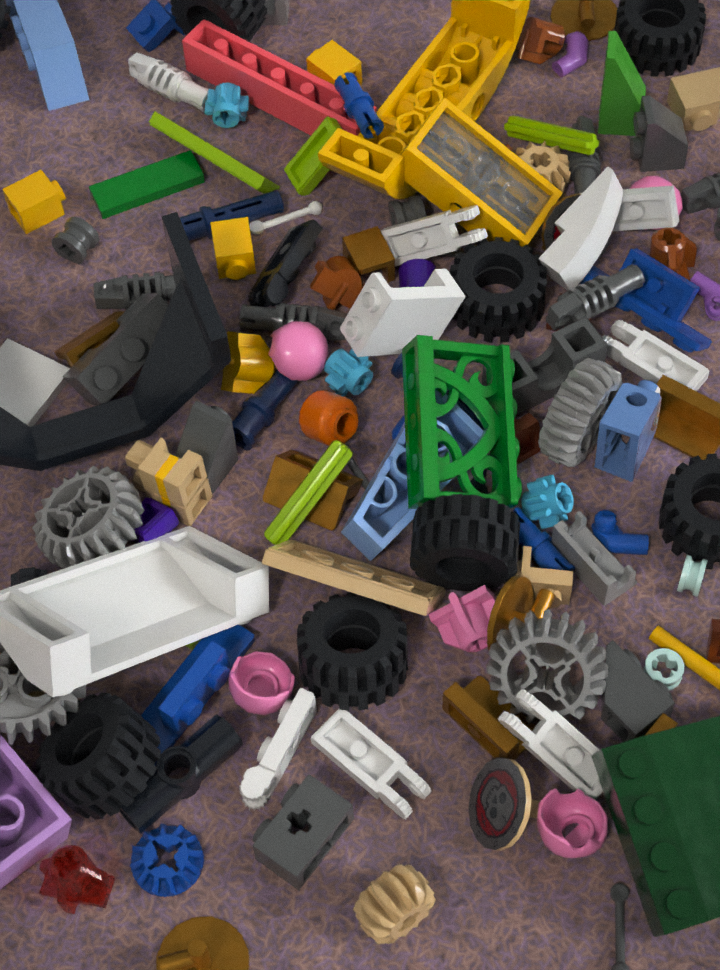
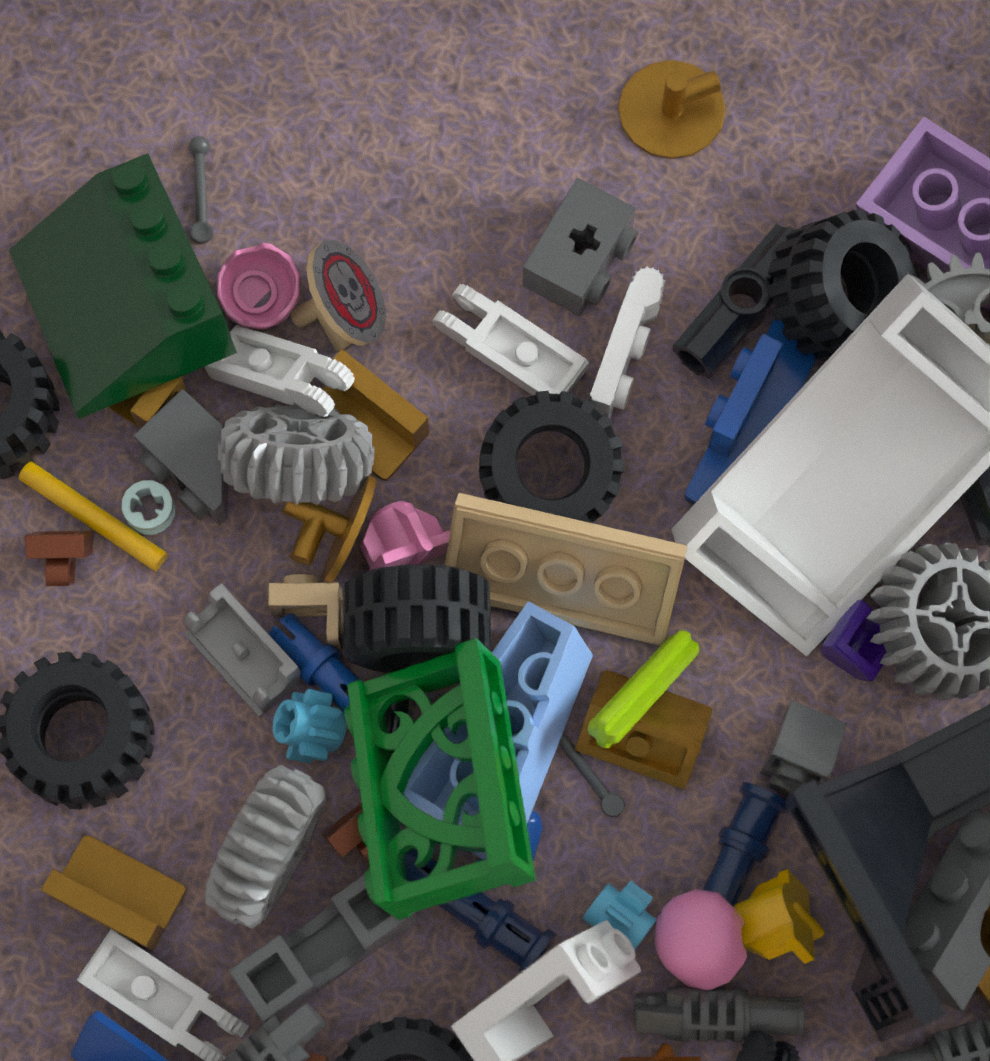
camera: 170 degrees right, 15 degrees up
(75, 879) = (836, 172): clear red piece -> none
(164, 880) = (739, 233): blue gear -> none
(171, 480) = (851, 687): tan hips -> none
(260, 682) = (662, 421): bright pink hair -> none
(328, 417) = (636, 834): orange head -> none
(394, 904) = (459, 167): tan gear -> none
(615, 539) = (214, 692): blue arm -> none
(635, 415) = (193, 825): medium blue torso -> none
(692, 575) = (109, 637): light aqua bush -> none

